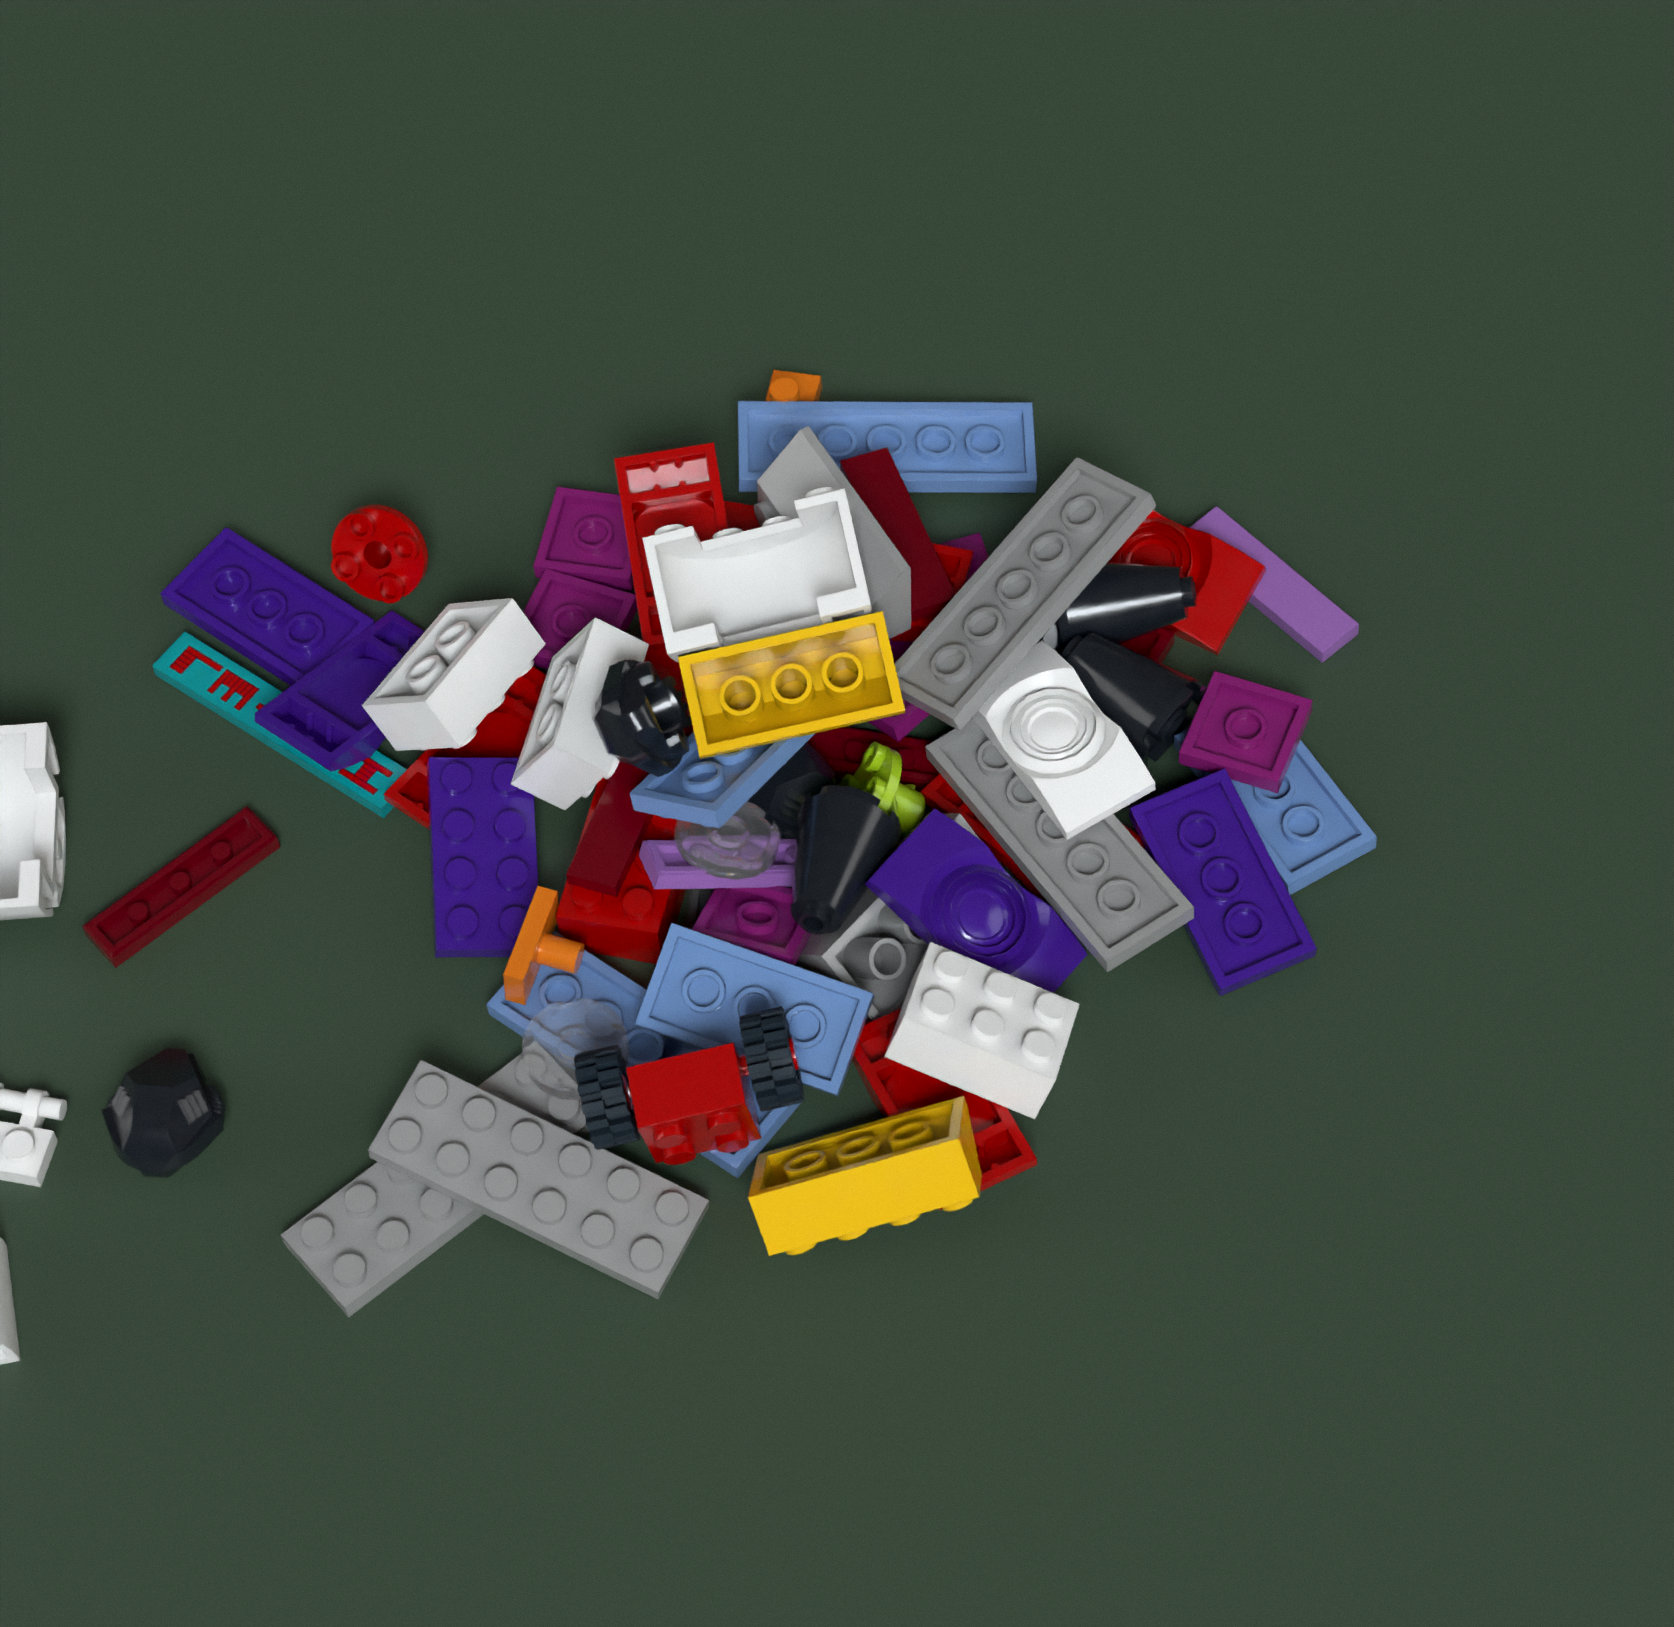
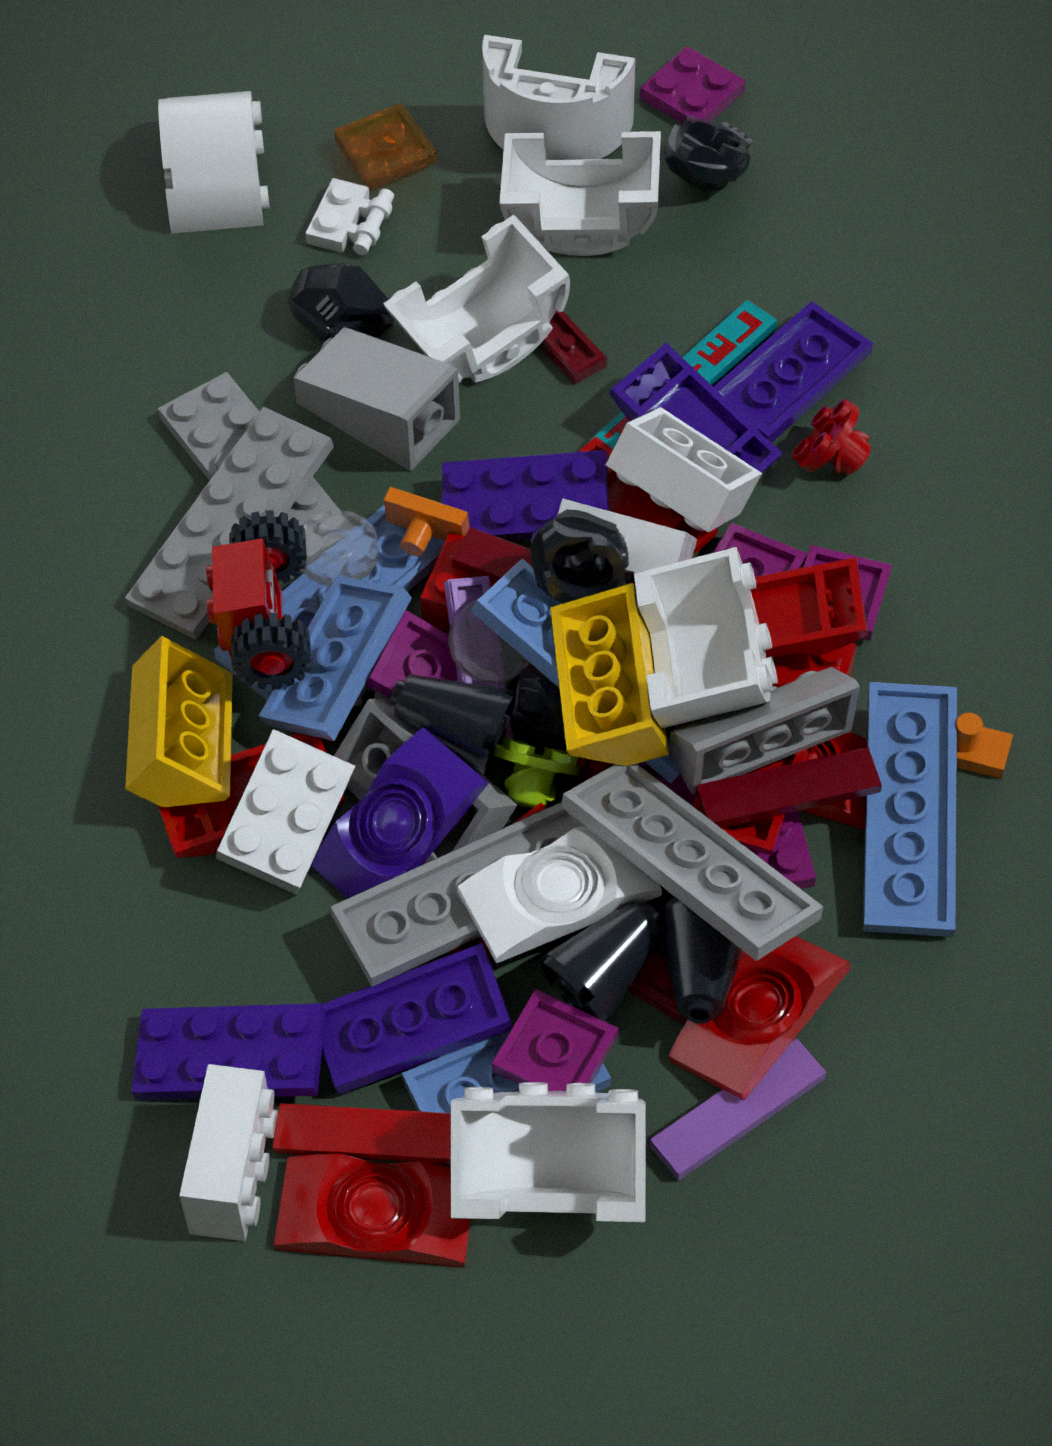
camera: 90 degrees right, 0 degrees up
(183, 920) = (493, 311): none -> white cylinder
(324, 1036) = (381, 395): none -> light grey slope
(1288, 1065) = (270, 1038): none -> dark purple plate
(1368, 908) = (363, 1133): none -> red tile
(1372, 689) = (549, 1152): none -> white cylinder
(1428, 1026) = (228, 1153): none -> white brick
(1449, 904) = (370, 1210): none -> red slope

